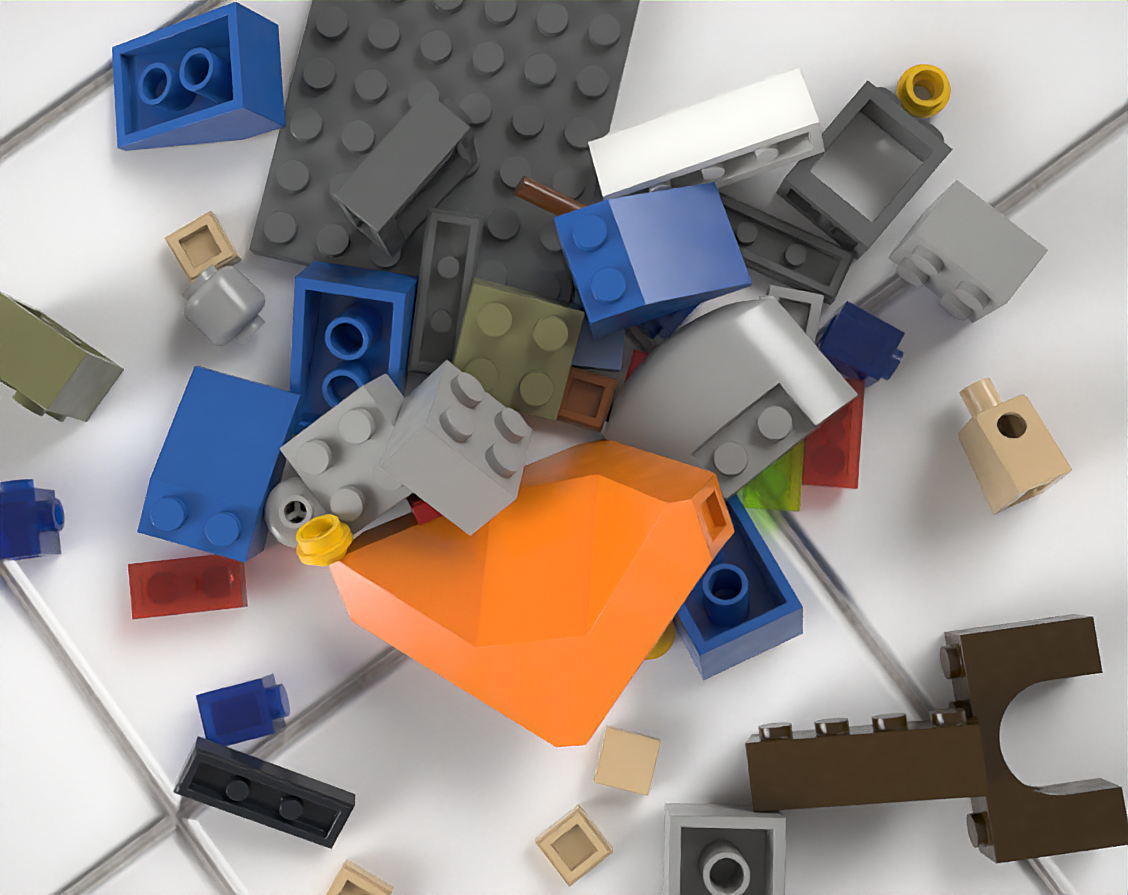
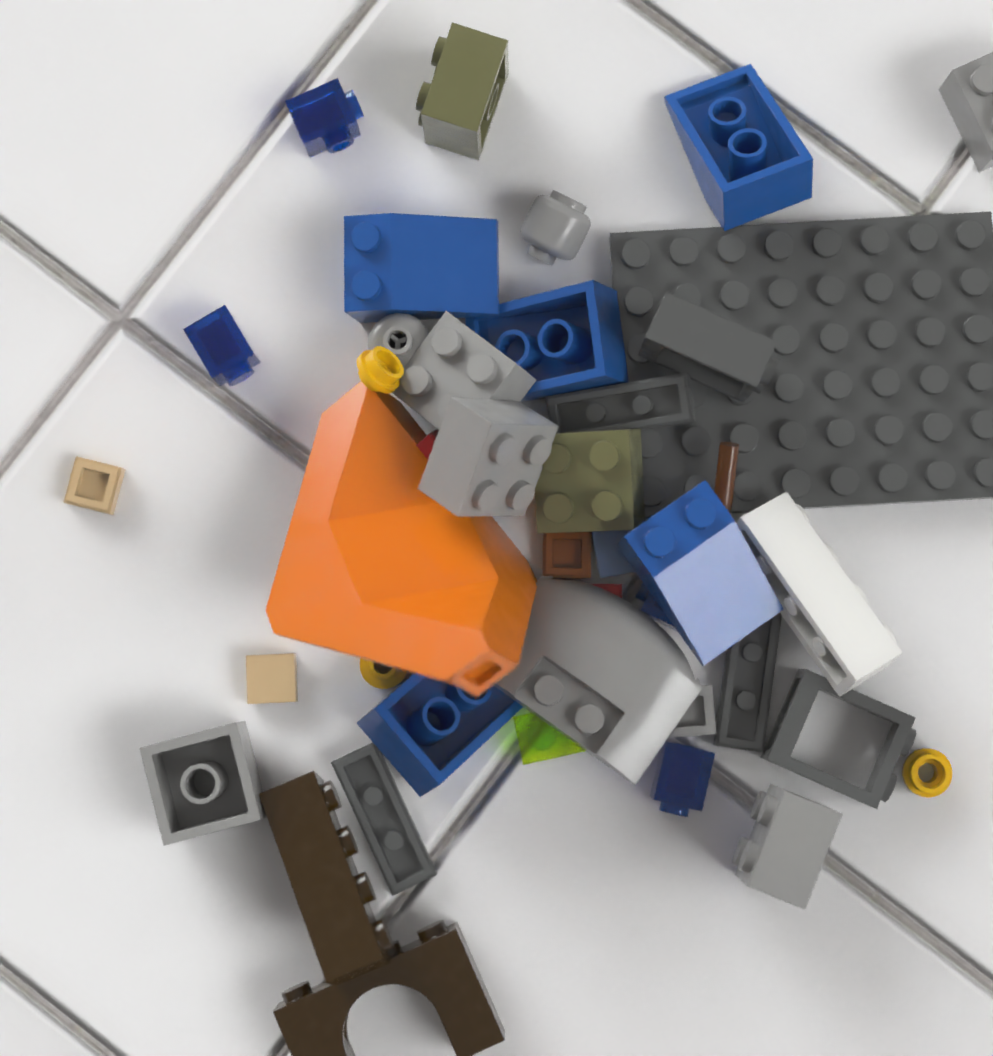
camera: 80 degrees right, 0 degrees up
(186, 586) = (311, 269): clear red plate -> none
(201, 245) = (601, 193): tan tile -> none
(264, 792) = (161, 385): black tile -> none
(574, 845) = (189, 654): tan tile -> none
(813, 679) = (384, 818): none -> dark grey tile
(833, 449) = (585, 779): clear red plate -> none
(1008, 447) = (614, 941): tan torso -> none

